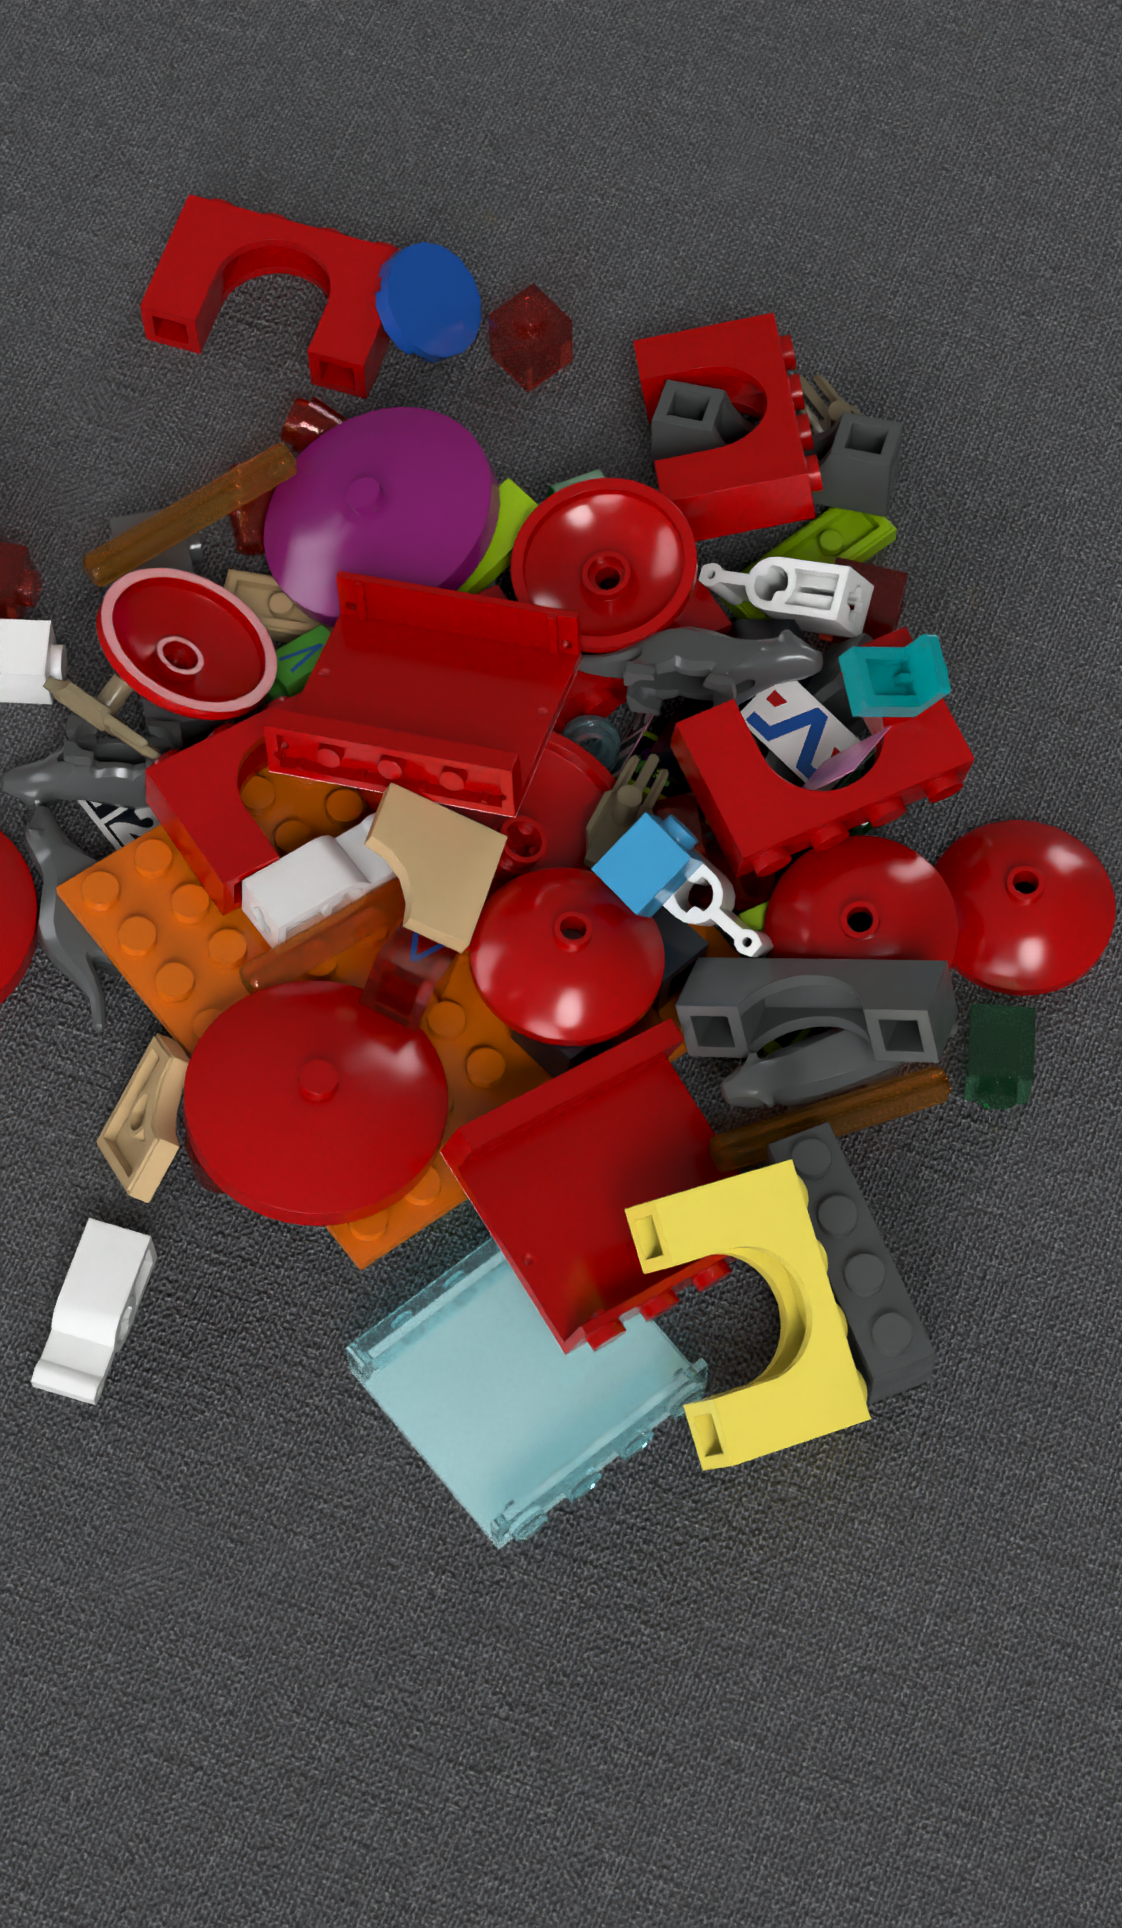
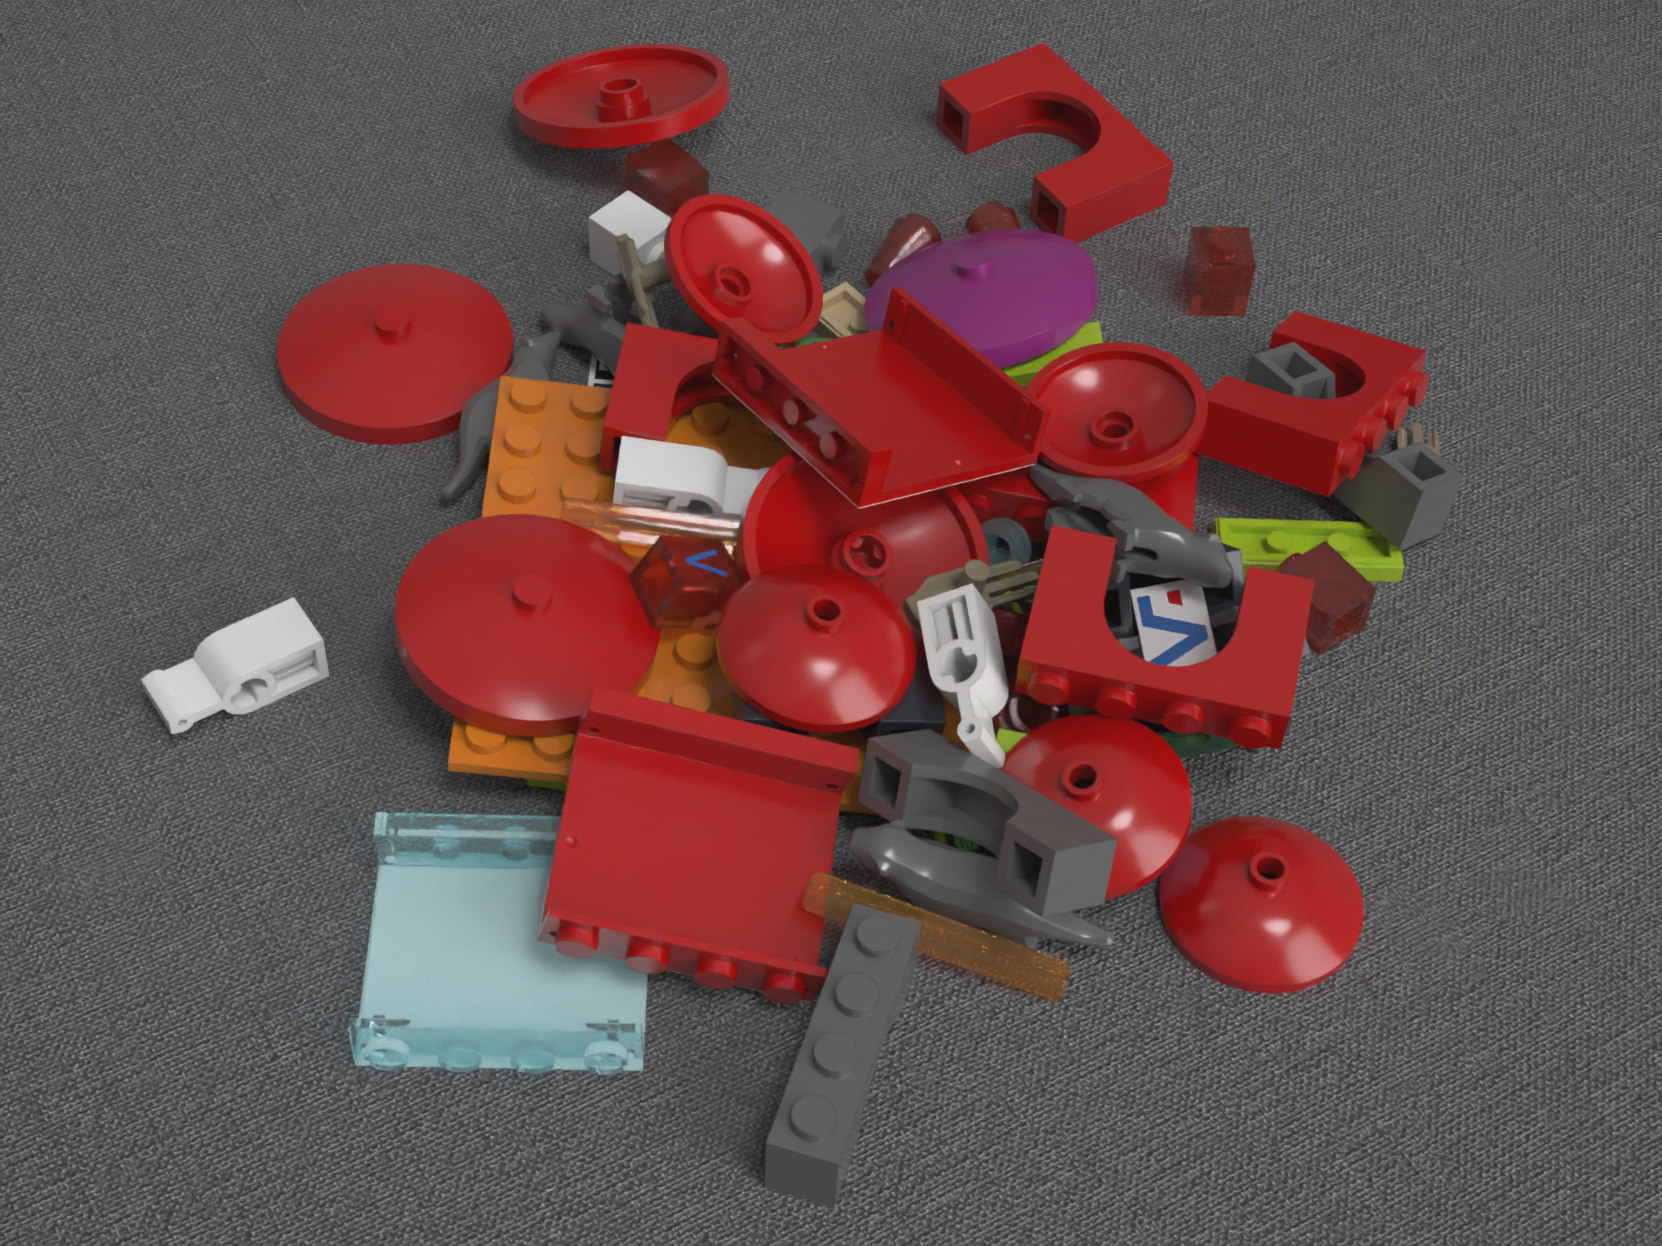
camera: 35 degrees right, 15 degrees down
(142, 1128) = (390, 562): tan tile -> none
(189, 515) = (852, 214): clear orange axle -> none
(428, 302) = (1157, 201): blue tile -> none
(440, 862) = (774, 510): tan tile -> none
(649, 863) = (934, 608): dark azure brick -> none
(800, 590) = (1263, 529): white piece -> none
(812, 1377) = (781, 940): light yellow arch -> none
(842, 762) = (1181, 653): bright pink sticker -> none
(895, 678) = (1261, 600): teal bracket -> none
(999, 1055) = (1130, 990): clear green brick -> none

